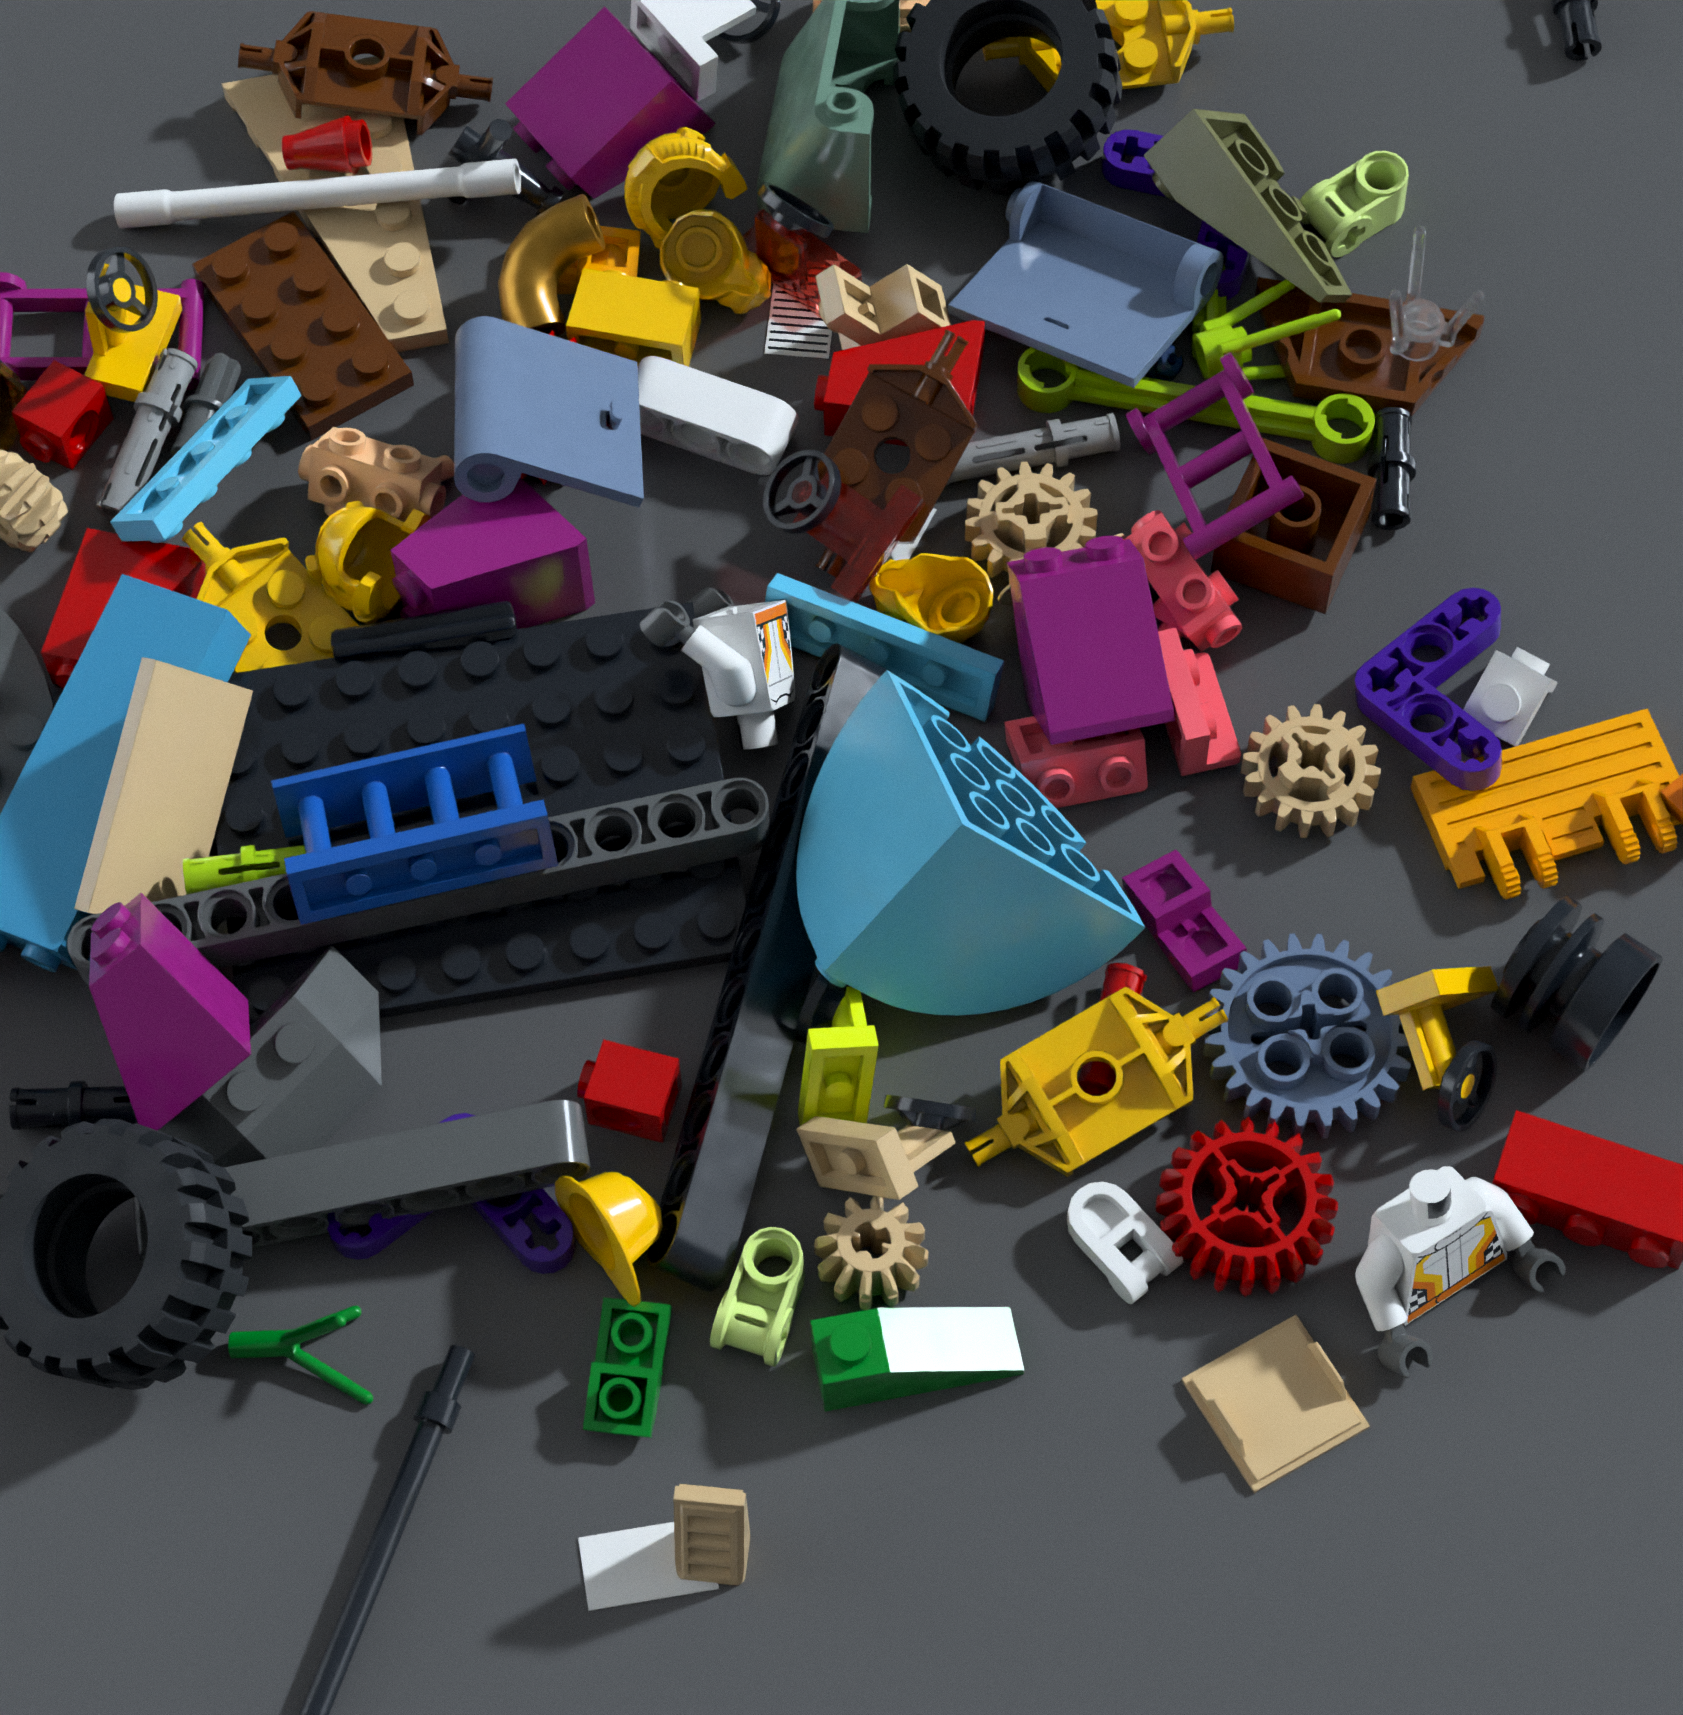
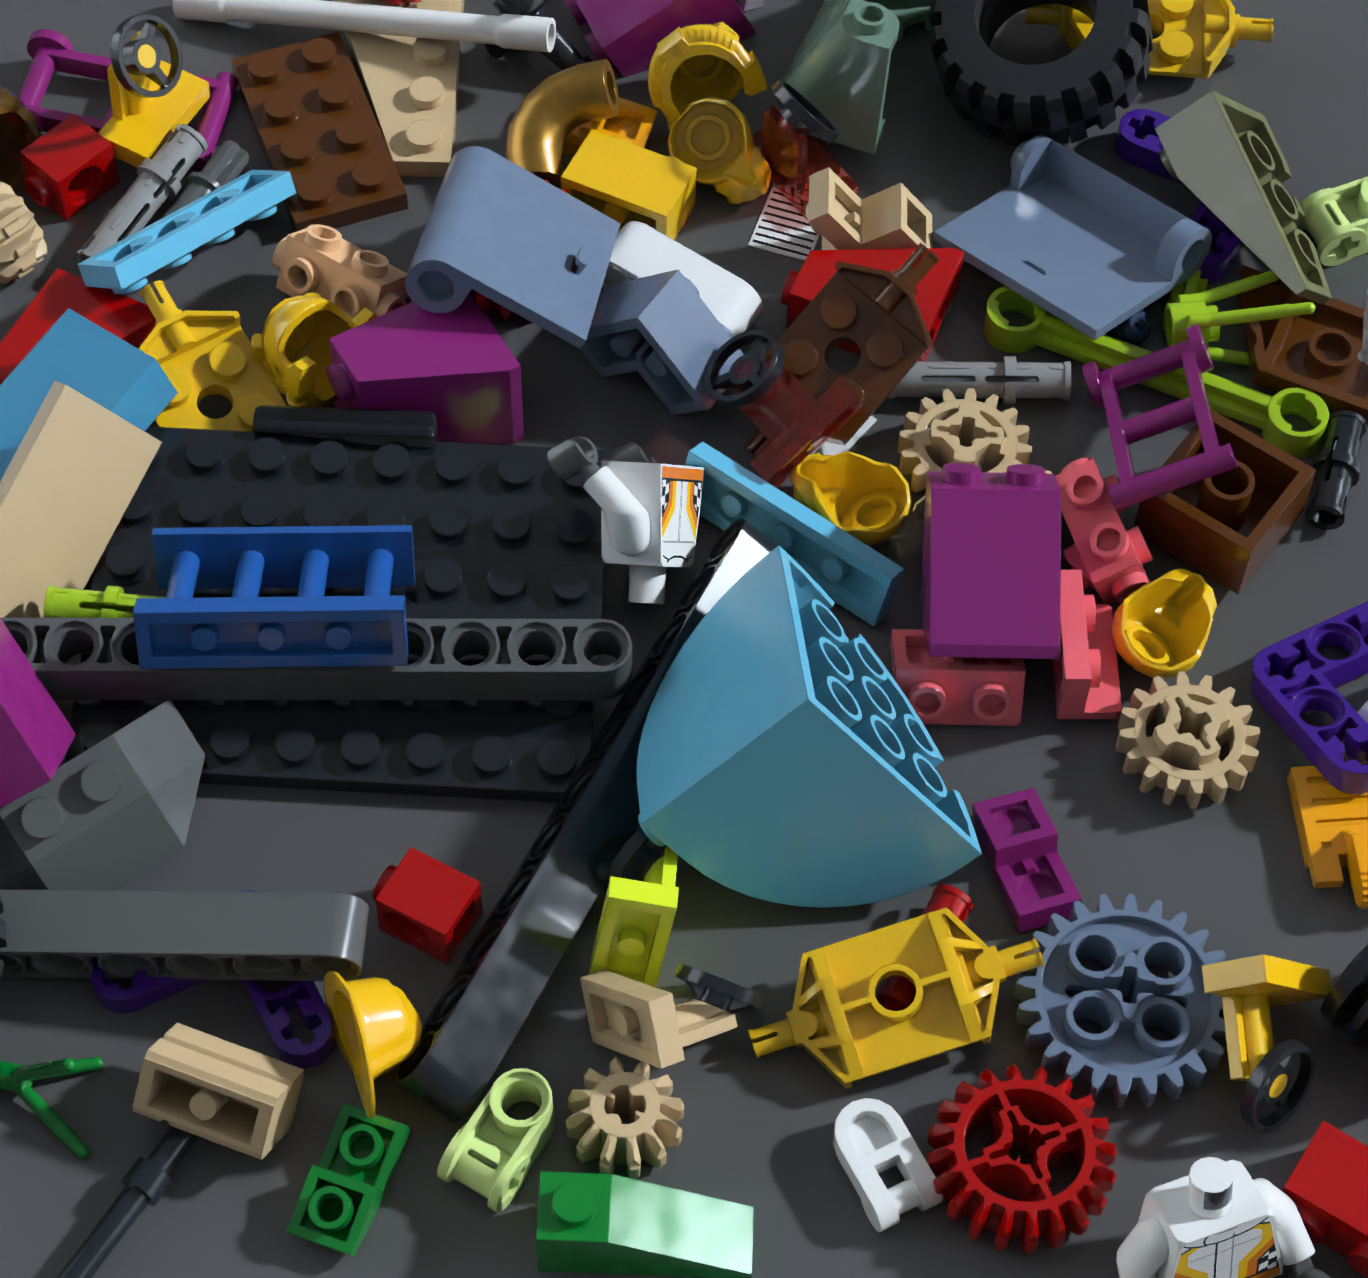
camera: 10 degrees right, 5 degrees down
(484, 1312) = (218, 1090): none -> tan brick
(709, 469) = (663, 334): none -> sand blue brick
(1264, 661) = (1165, 624): none -> yellow hair

